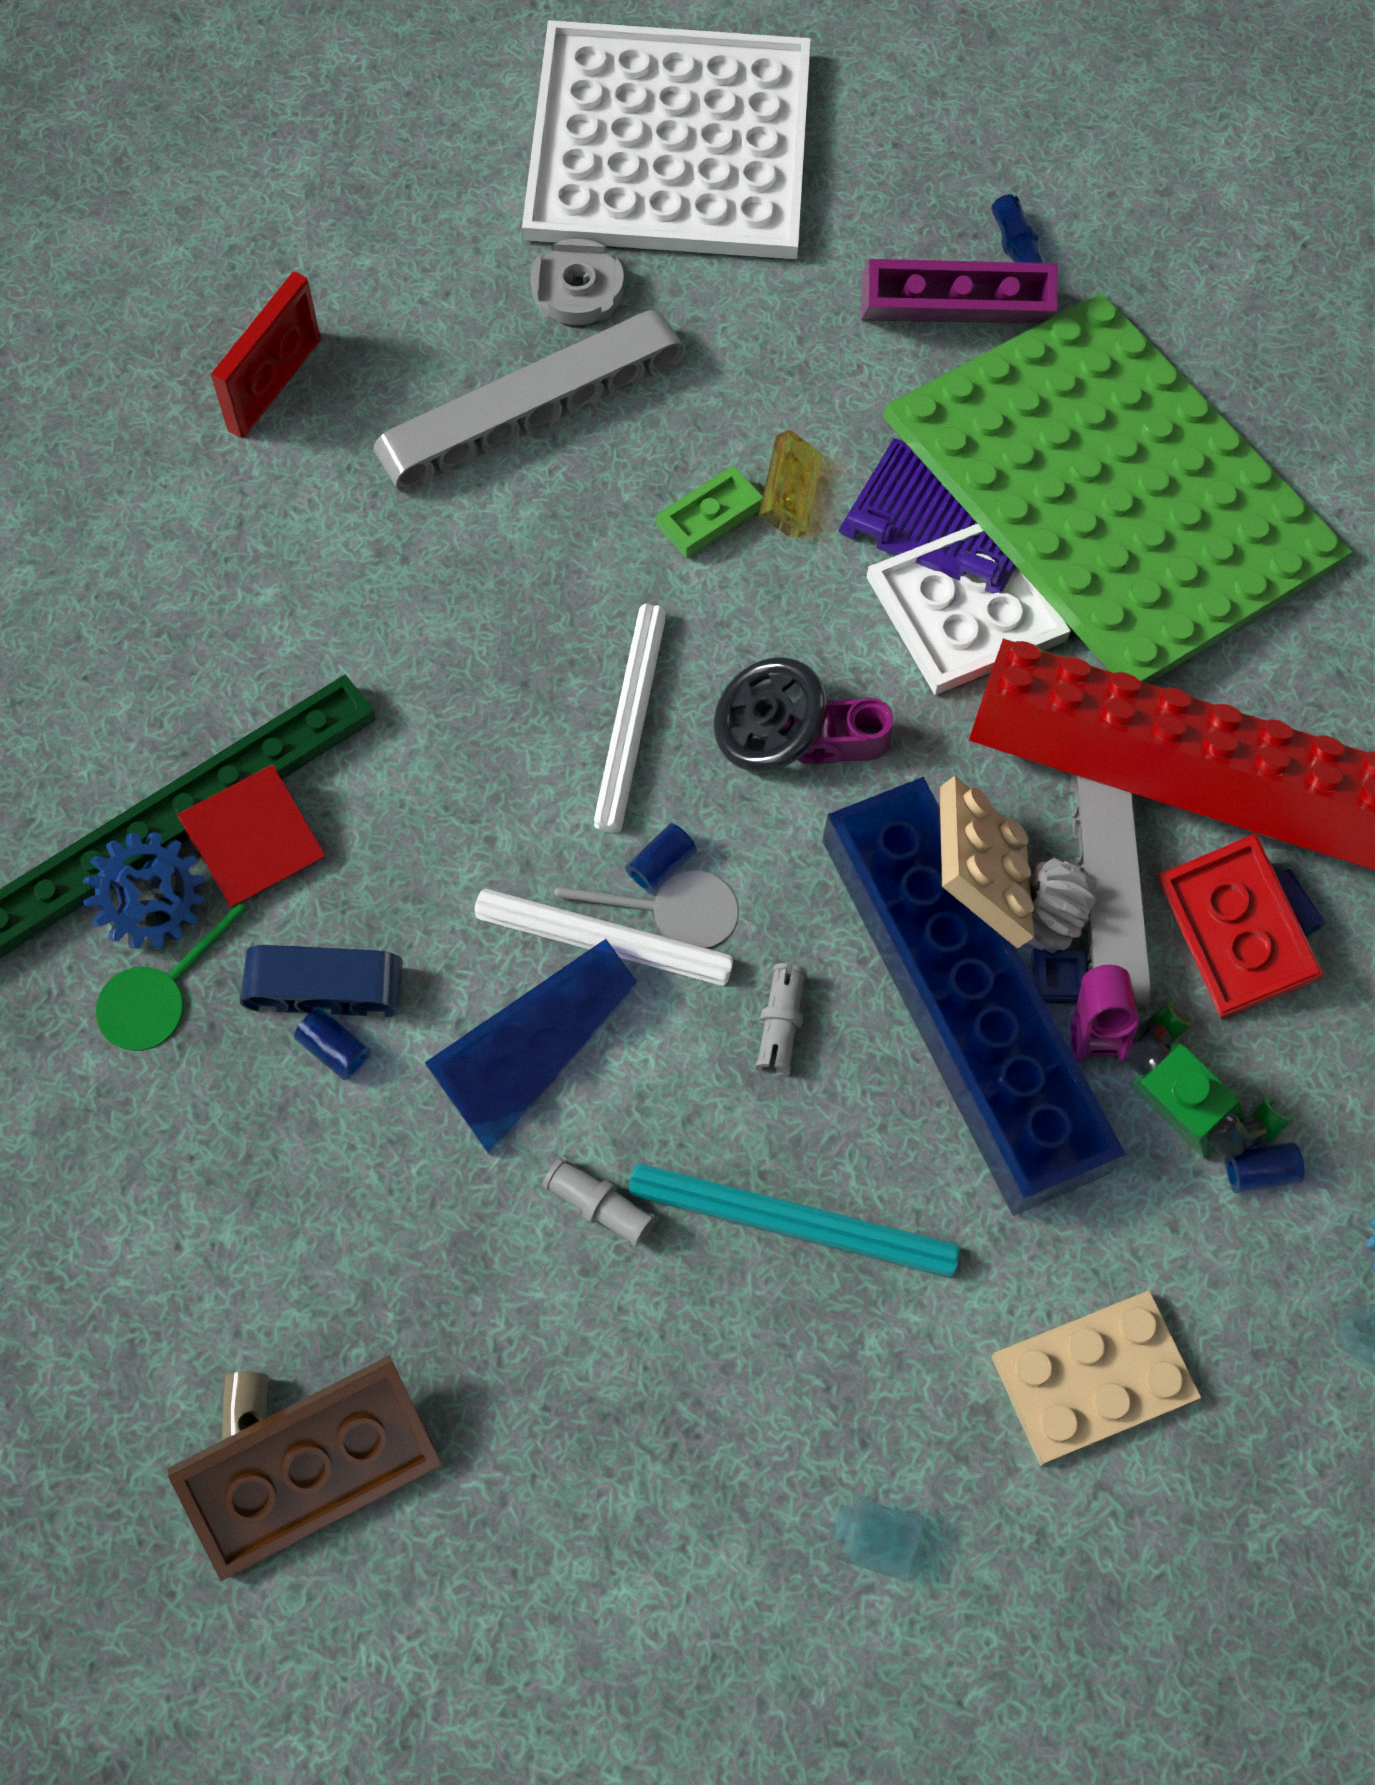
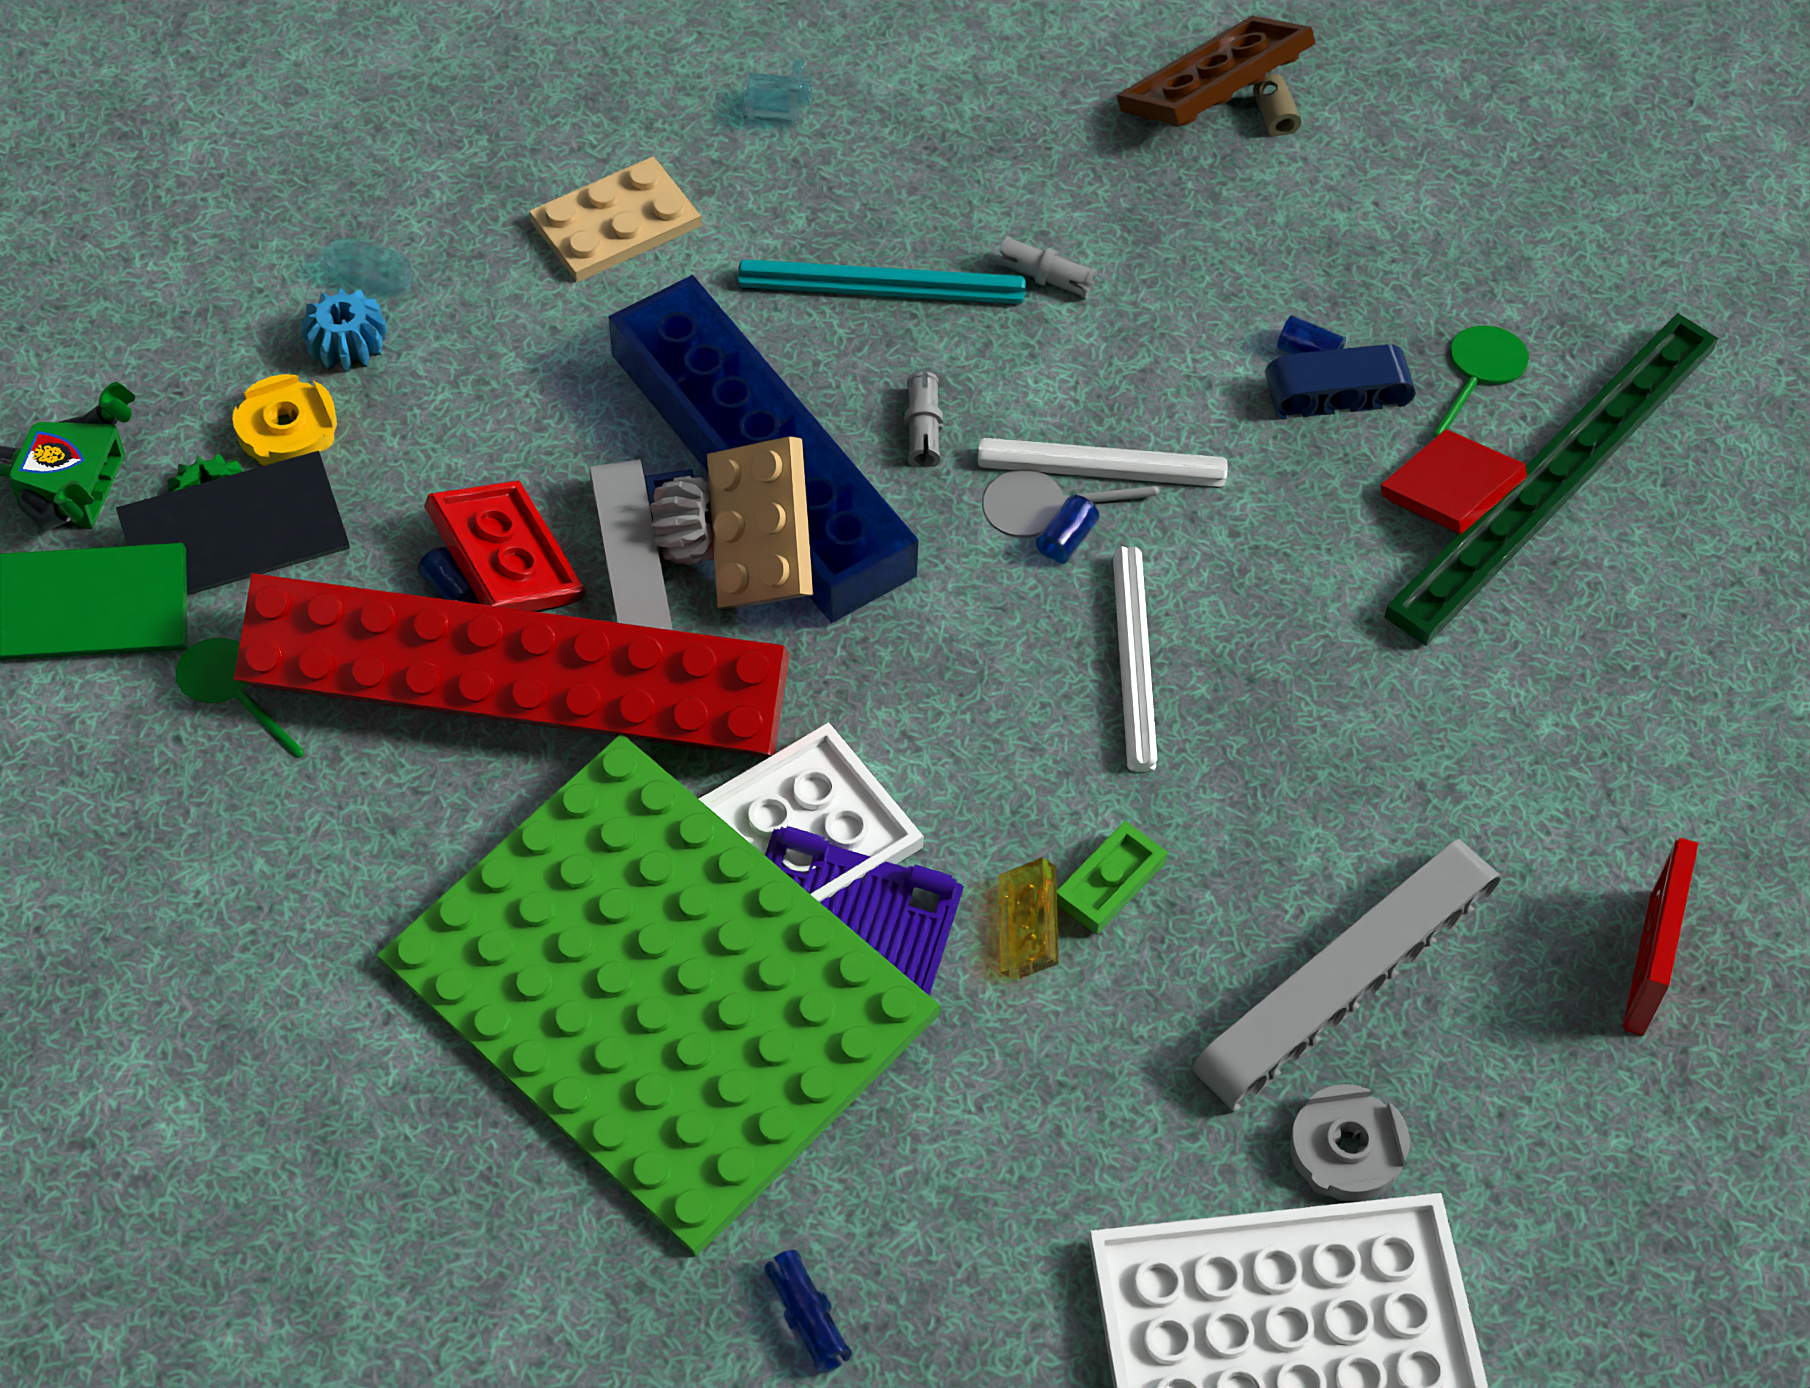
camera: 170 degrees right, 10 degrees down
(156, 870) = (1526, 413): blue gear -> none
(523, 1048) = (1145, 361): clear blue wing -> none
(778, 750) = (994, 660): black plate -> none
(840, 734) = (919, 665): magenta piece -> none
(958, 291) = (877, 1186): magenta brick -> none
(1104, 1015) = (629, 430): magenta piece -> none
(1192, 1096) = (549, 390): green torso -> none
(1265, 1168) = (477, 370): clear blue piece -> none

